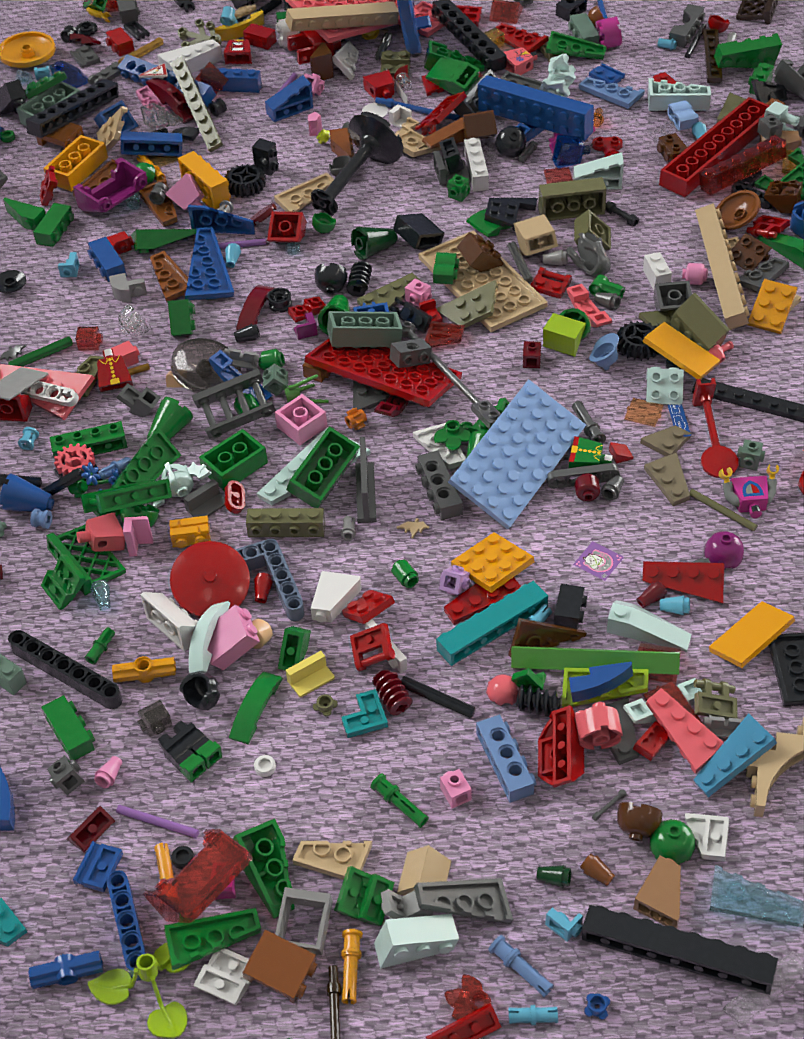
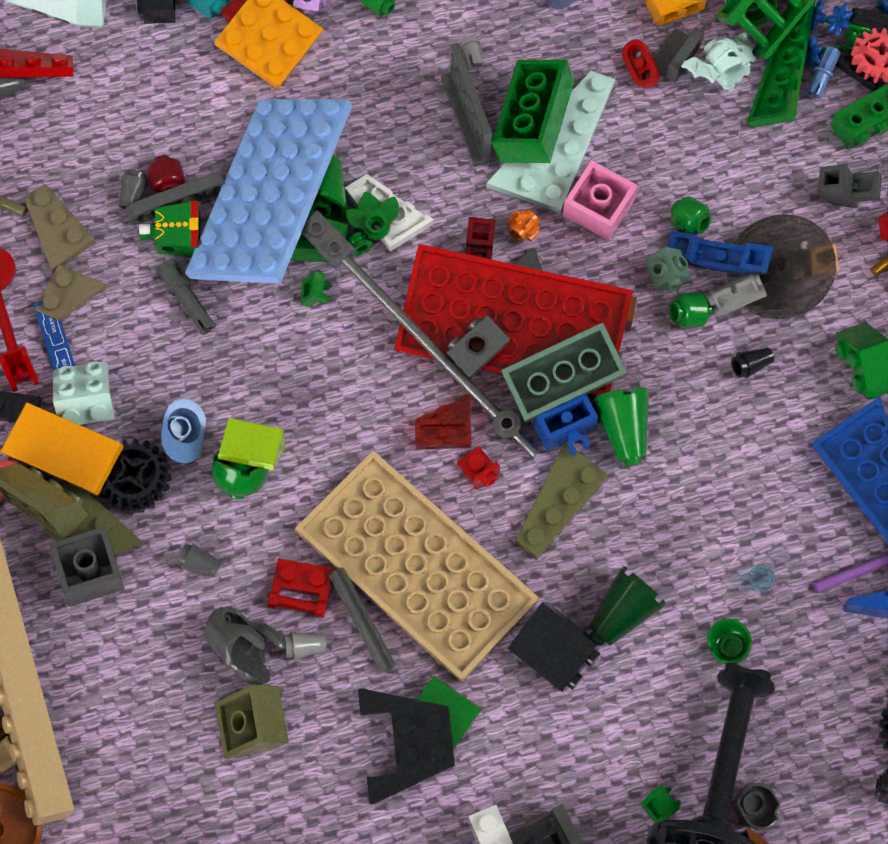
camera: 160 degrees right, 20 degrees up
(171, 418) = (786, 160): green cone -> none
(227, 388) = (709, 213): dark grey fence -> none
(232, 254) = (854, 532): medium azure cone -> none
(234, 458) = (666, 112): green brick -> none
(253, 306) = (766, 429): dark red slope -> none
(263, 213) = (843, 632): dark red tile -> none
(279, 299) = (726, 434): black wheel -> none
(285, 522) = (556, 34): olive brick -> none
(286, 227) = (785, 605): red slope -> none
(294, 391) = (631, 258): bright green plant -> none
(300, 195) = (799, 717): tan wing -> none
(307, 329) = (666, 394): magenta panel -> none
(312, 305) = (681, 439): red slope -> none
(330, 278) = (664, 497): black cylinder -> none
(359, 278) = (617, 517): black piece -> none
(387, 176) = (660, 804): none -> green tile
(412, 314) = (508, 454): black hinge -> none
(413, 527) = (387, 78): tan piece -> none
(417, 292) = (509, 497): bright pink brick -> none
(436, 477) = (388, 173): dark grey brick -> none
(445, 268) = (479, 552): green brick -> none
(458, 188) = (519, 801): green brick -> none
(472, 306) = (415, 481): olive wing -> none
(479, 253) = (429, 599): reddish brown slope -> none
(531, 354) = (296, 409): dark red brick -> none
(535, 235) = (345, 668): tan slope -> none
(572, 198) = (302, 786): olive brick -> none
(580, 299) = (224, 532): coral slope -> none
(598, 561) = (134, 82): sticker -> none
(602, 285) = (211, 589): green piece -> none
(620, 452) = (130, 256): red slope -> none
(631, 219) = (230, 809): black bar -> none
(643, 412) = (108, 343): clear orange piece -> none
(652, 594) = (56, 36): dark red cone -> none
(656, 269) = (124, 640): white brick -> none
(677, 605) = (26, 27): medium azure cone -> none
(695, 273) = (59, 649): bright pink head -> none

